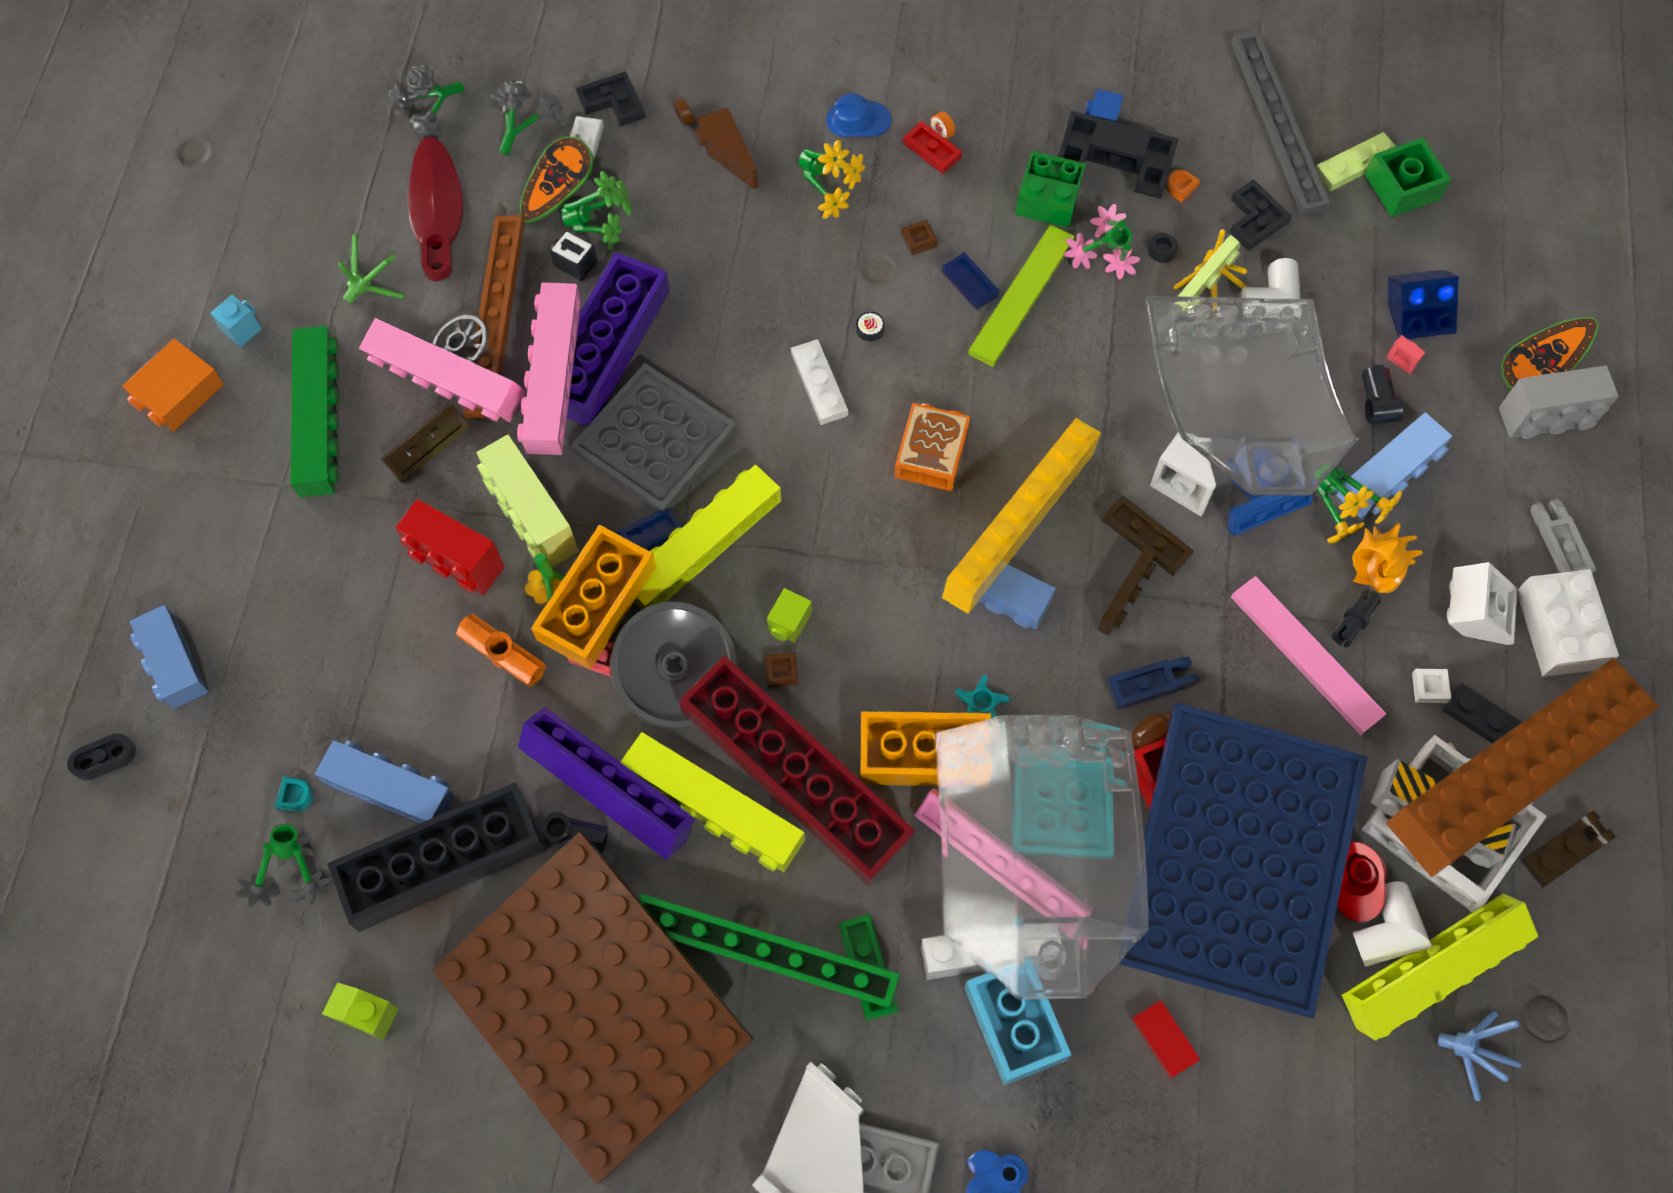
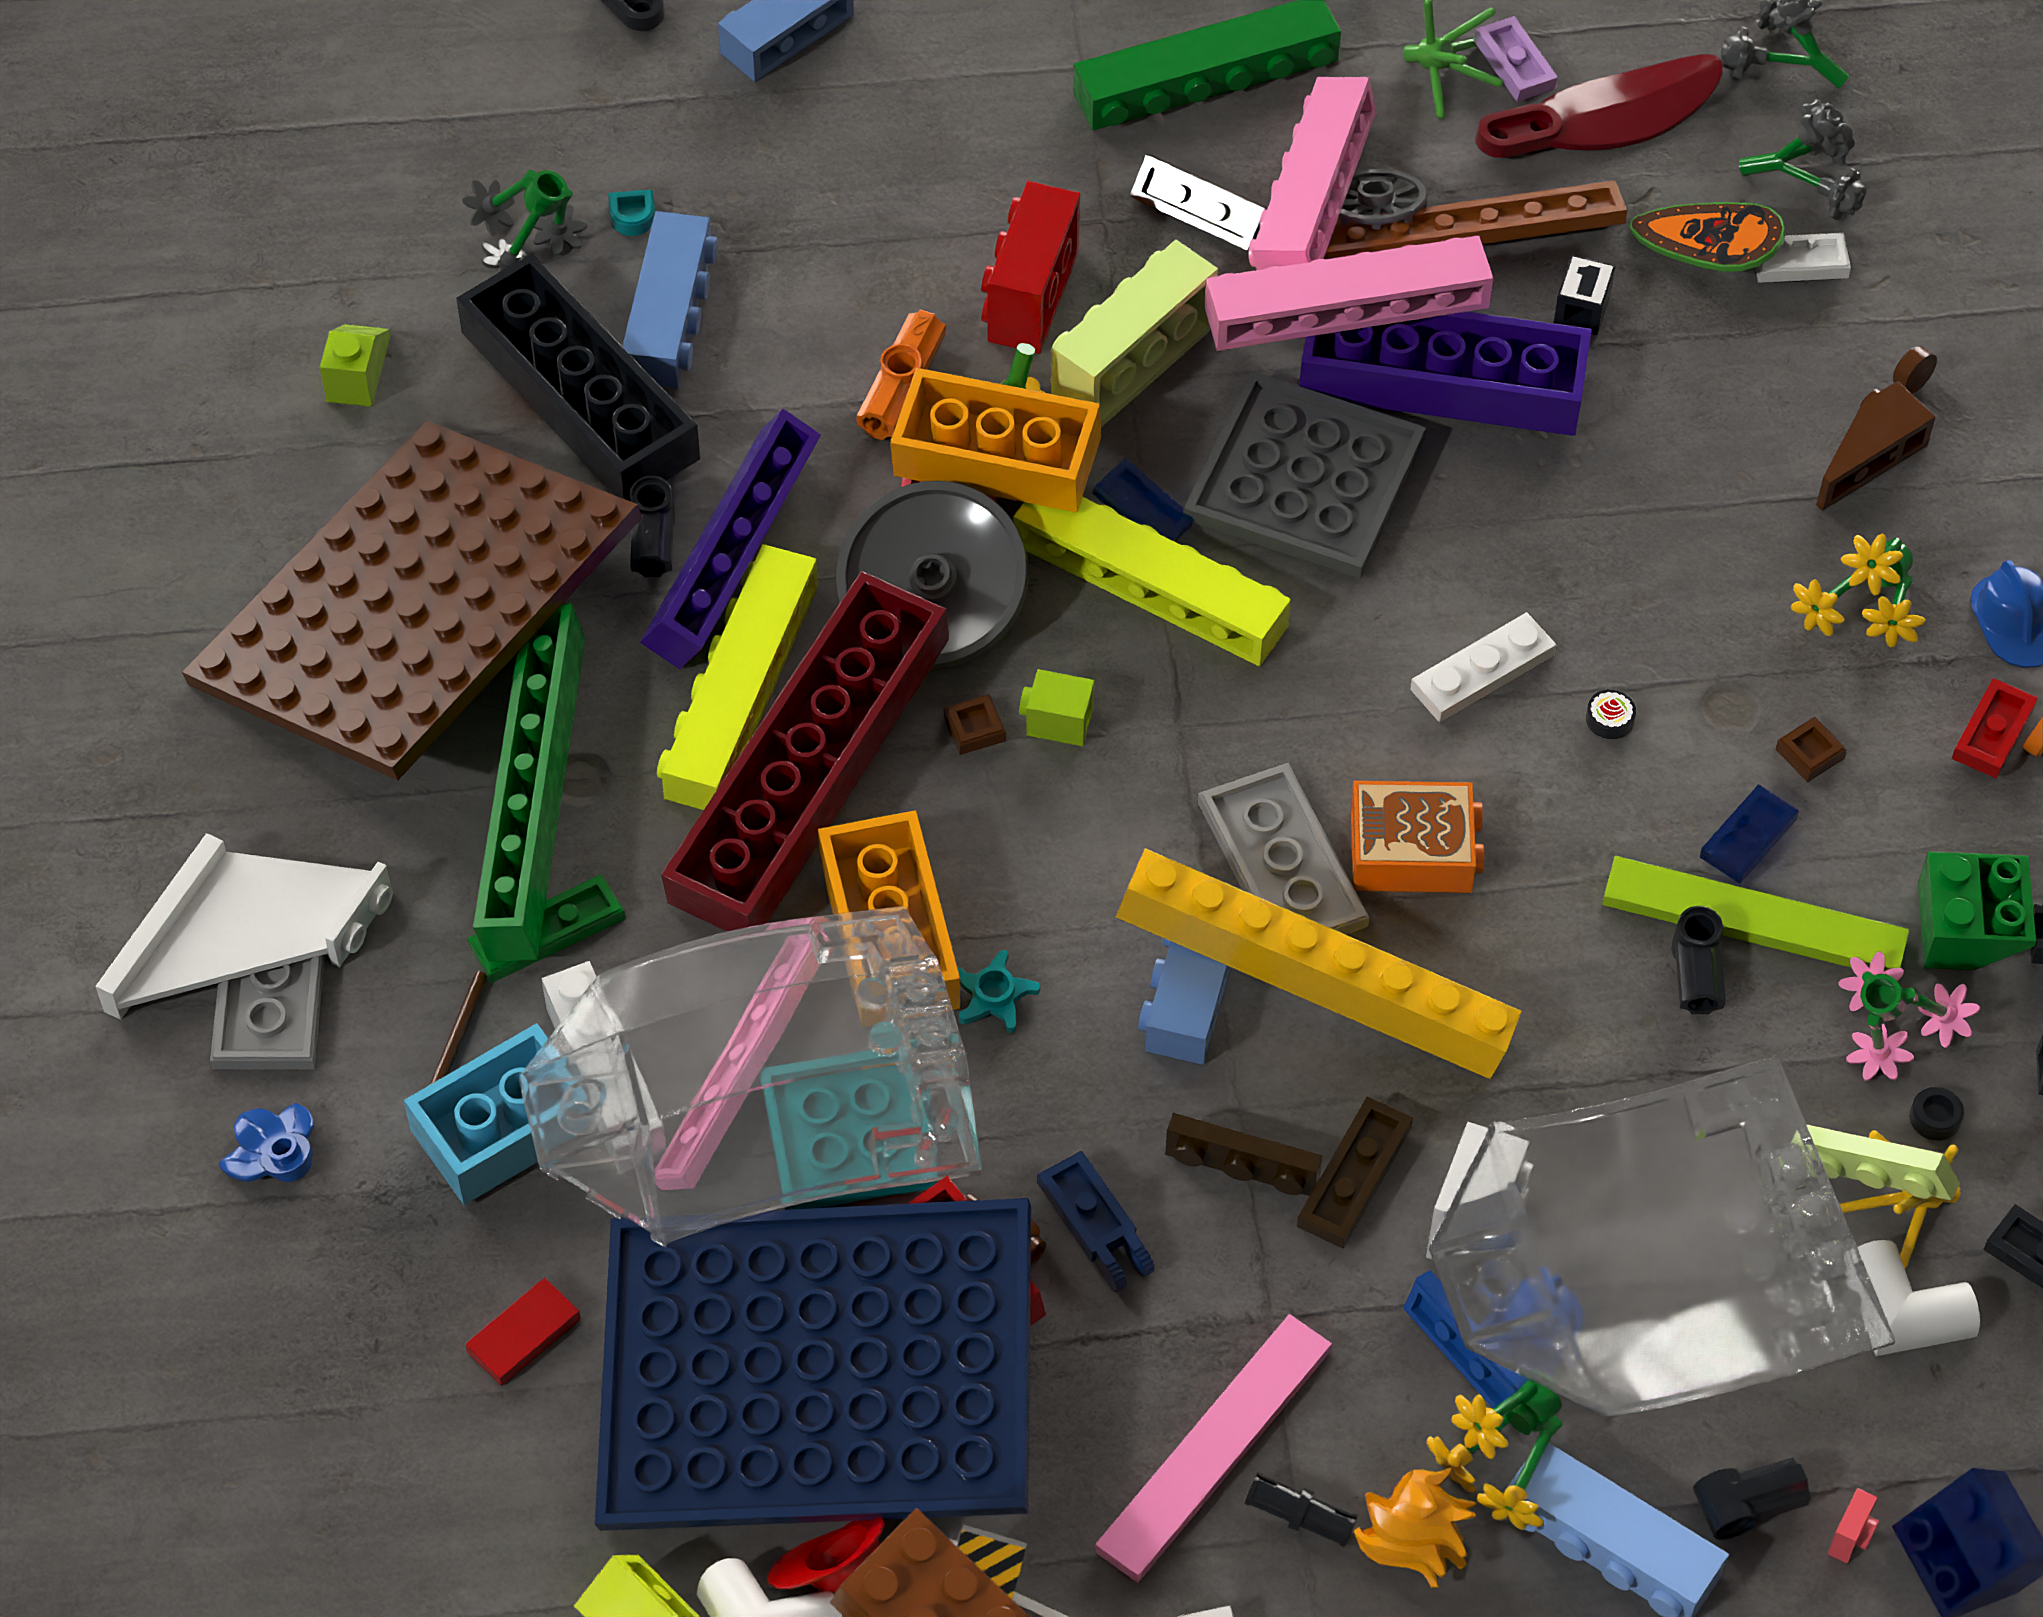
camera: 75 degrees right, 10 degrees down
(381, 242) = (1515, 59): none -> lavender plate
(577, 214) = (1663, 282): plant -> none
(612, 92) = (1910, 275): black plate -> none
(923, 521) = (1282, 848): none -> light grey tile
(945, 1047) = (460, 1026): none -> reddish brown axle
(1049, 326) = (1699, 961): none -> black piece

